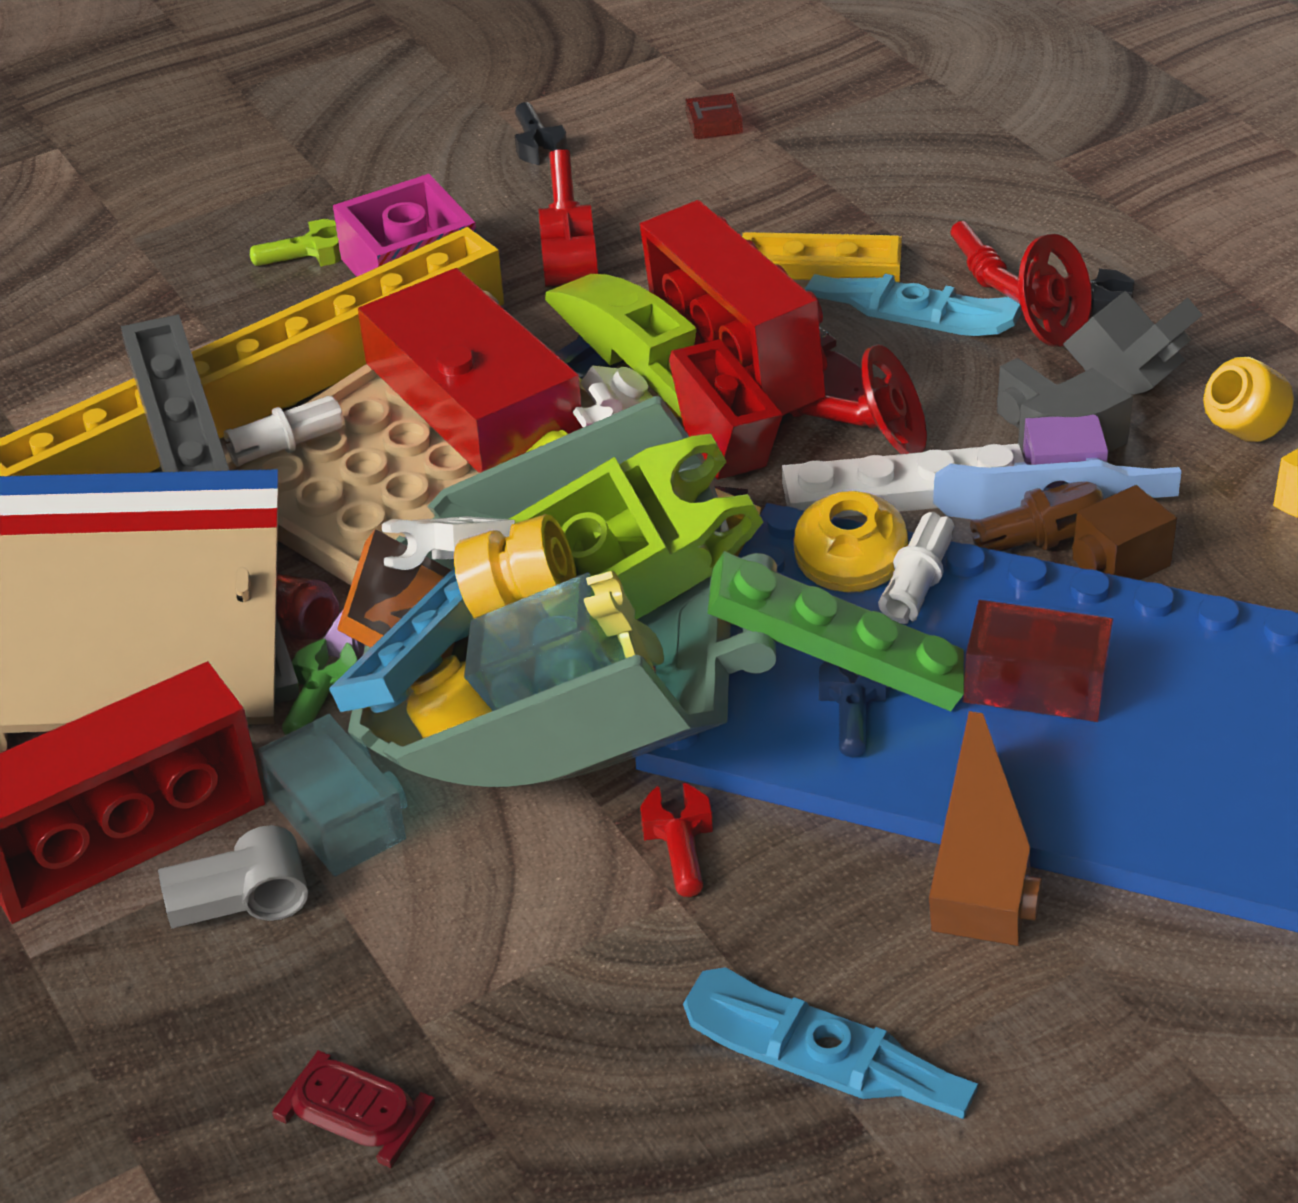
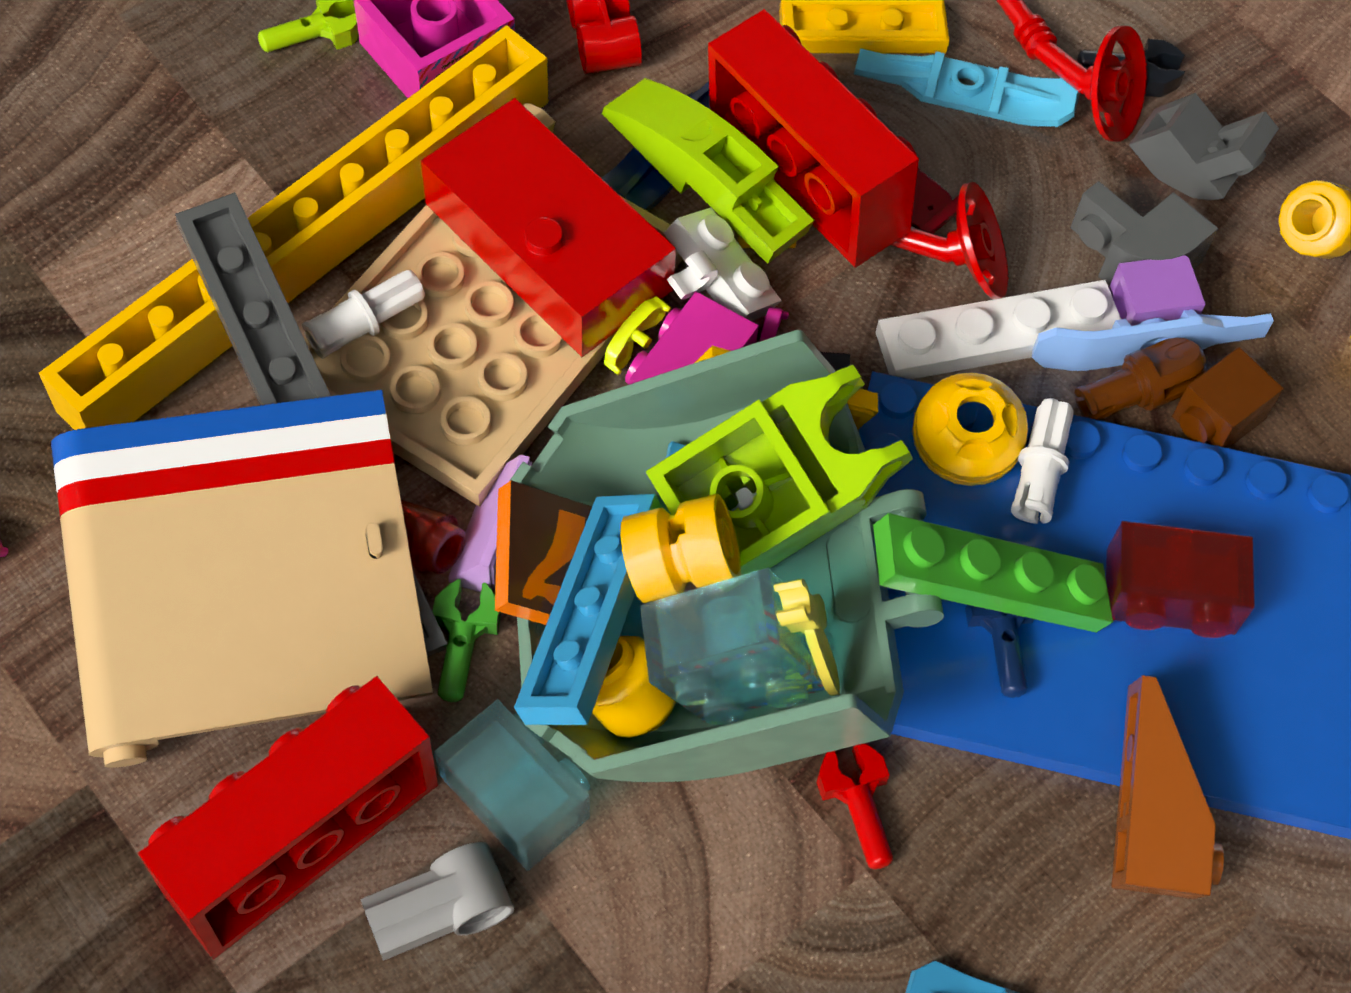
camera: 15 degrees left, 20 degrees up
(438, 536) = (592, 478): white plate -> none
(724, 401) = (816, 261): red slope -> none

